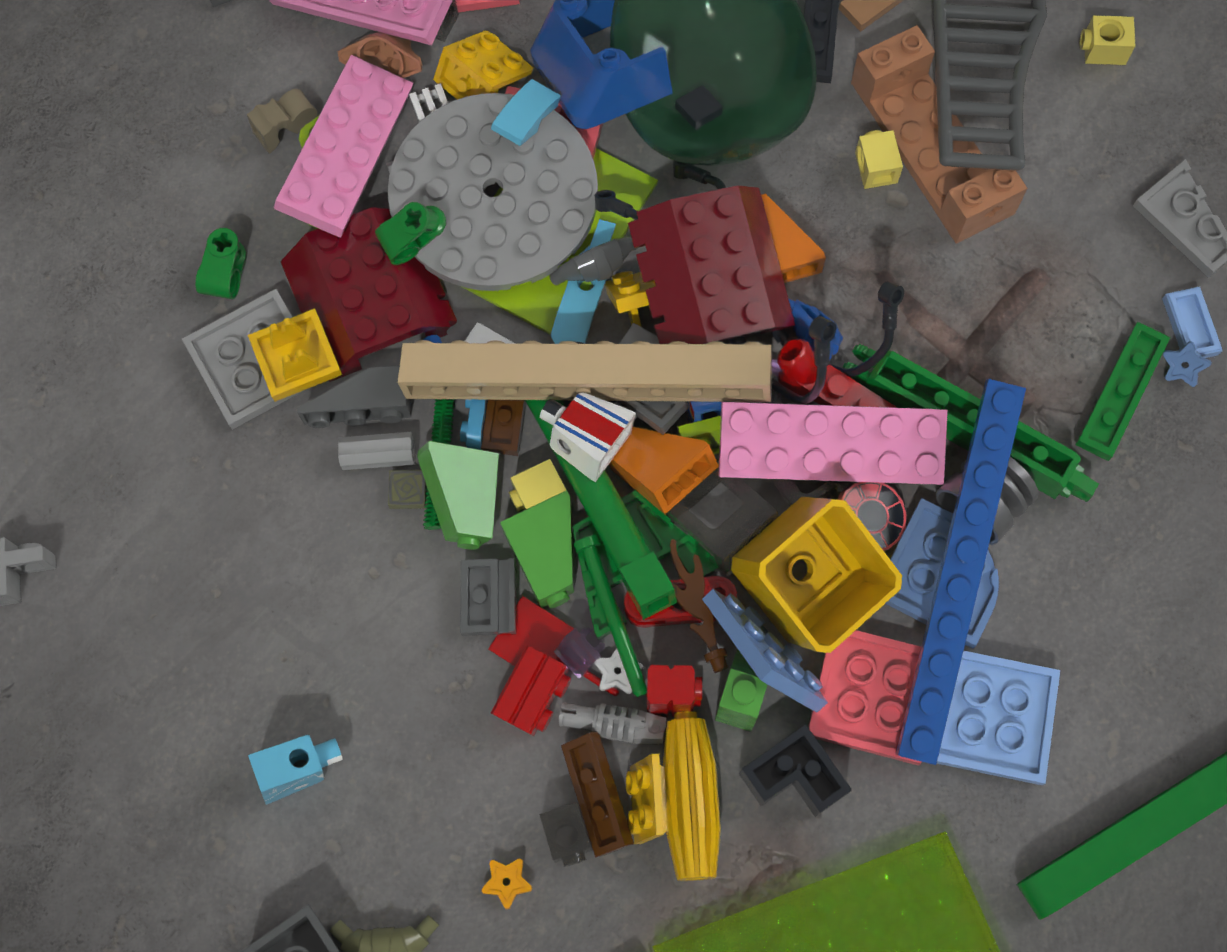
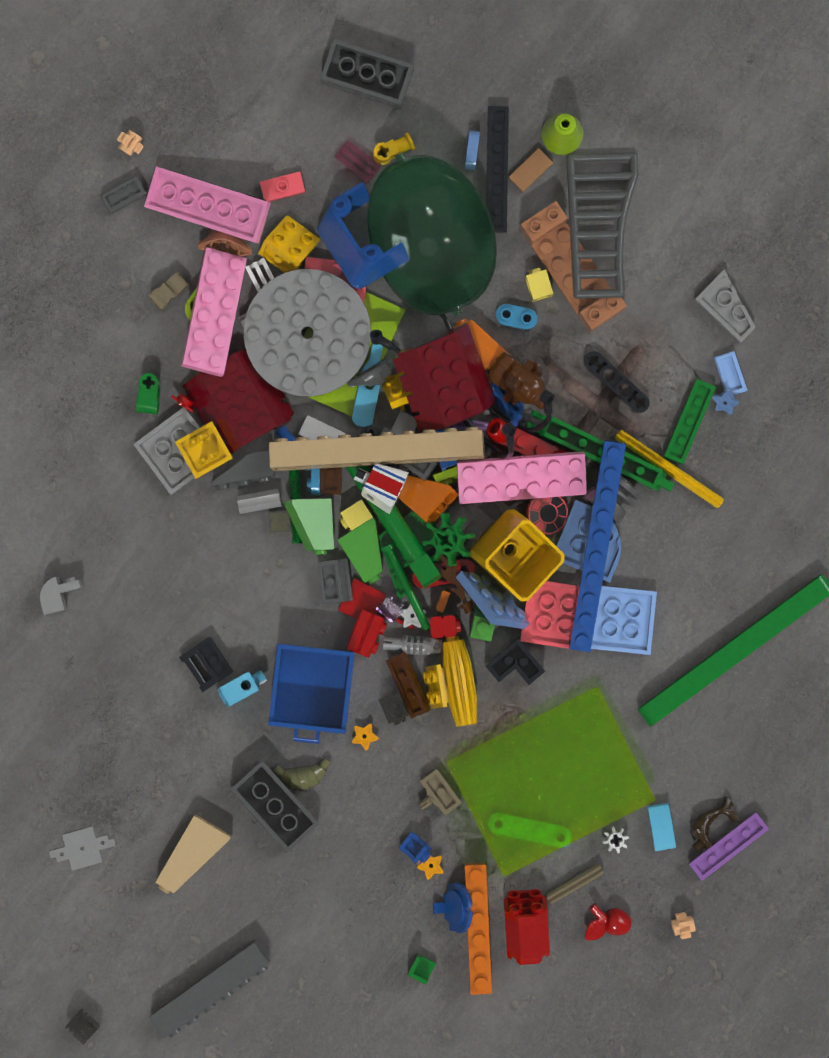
camera: 10 degrees left, 15 degrees up
(252, 713) = (212, 660): none -> black plate
(275, 278) = (184, 401): none -> red plate
(410, 231) = (262, 370): green piece -> none
(418, 781) = (311, 690): none -> blue container
(524, 112) = (322, 285): medium azure slope -> none
(674, 647) = (442, 601): none -> orange tile
(683, 541) = (456, 539): none -> green gear
(698, 107) = (426, 261): black tile -> none
(837, 207) = (516, 317): none -> dark azure plate
(837, 286) = (518, 380): none -> reddish brown piece
(1004, 314) = (618, 379): none -> black beam
(1110, 482) = (669, 469): none -> yellow axle
(1120, 38) = (684, 184): light yellow brick -> none

